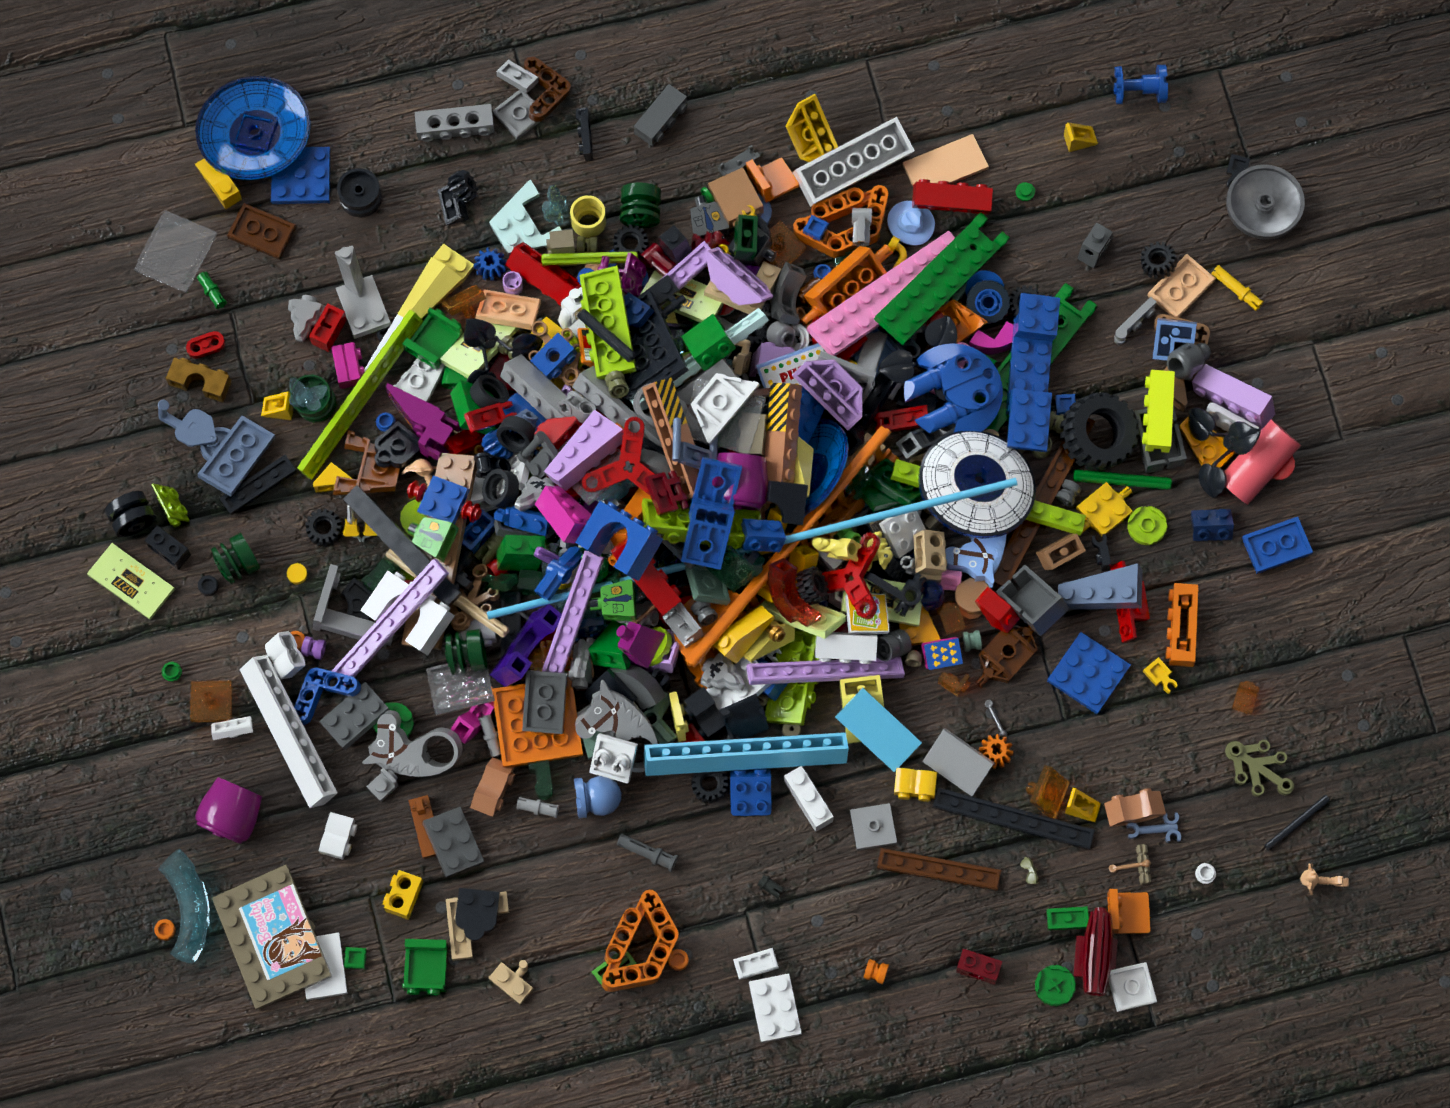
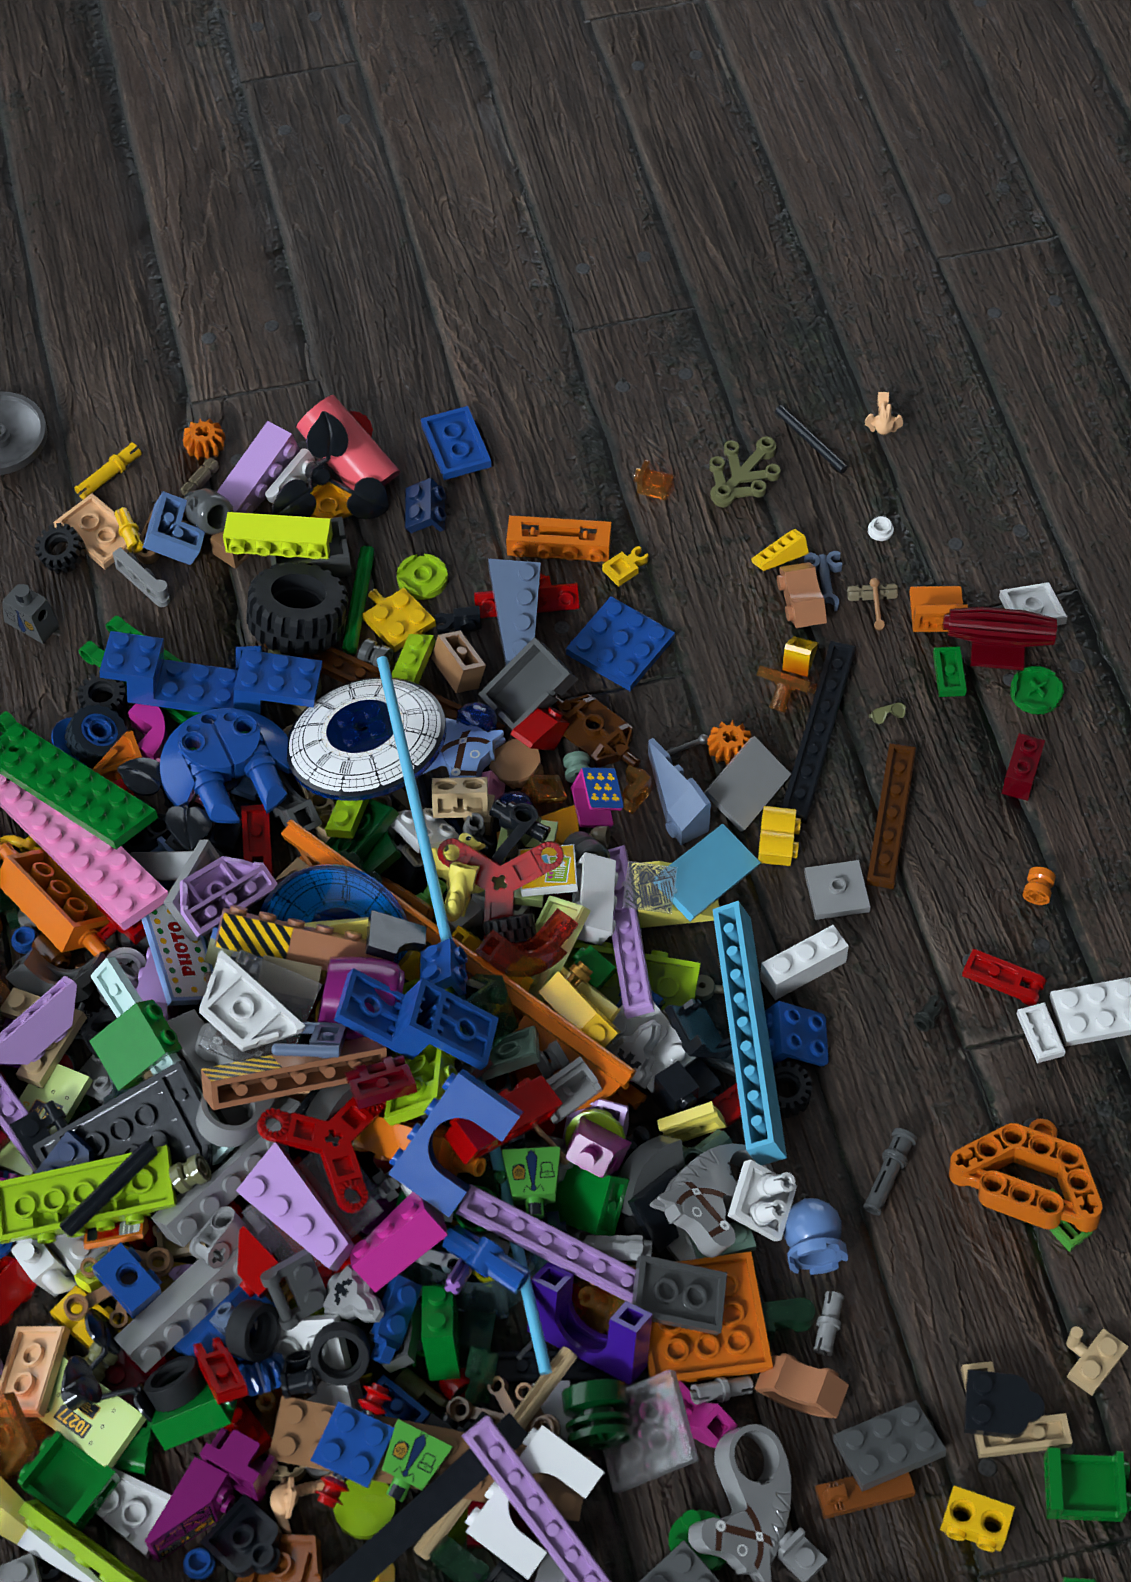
camera: 90 degrees left, 15 degrees down
(794, 647) = (600, 966): none -> green brick
(801, 940) = (1003, 976): none -> red plate
(854, 684) = (649, 887): none -> clear piece
(940, 713) = (681, 799): none -> sand blue wedge
(1002, 563) = (478, 715): none -> clear blue hair
(1175, 306) = (128, 530): none -> yellow axle
(1180, 798) = (783, 550): none -> yellow slope
(1234, 356) = (201, 476): none -> dark tan axle
(1270, 348) = (204, 439): none -> orange gear

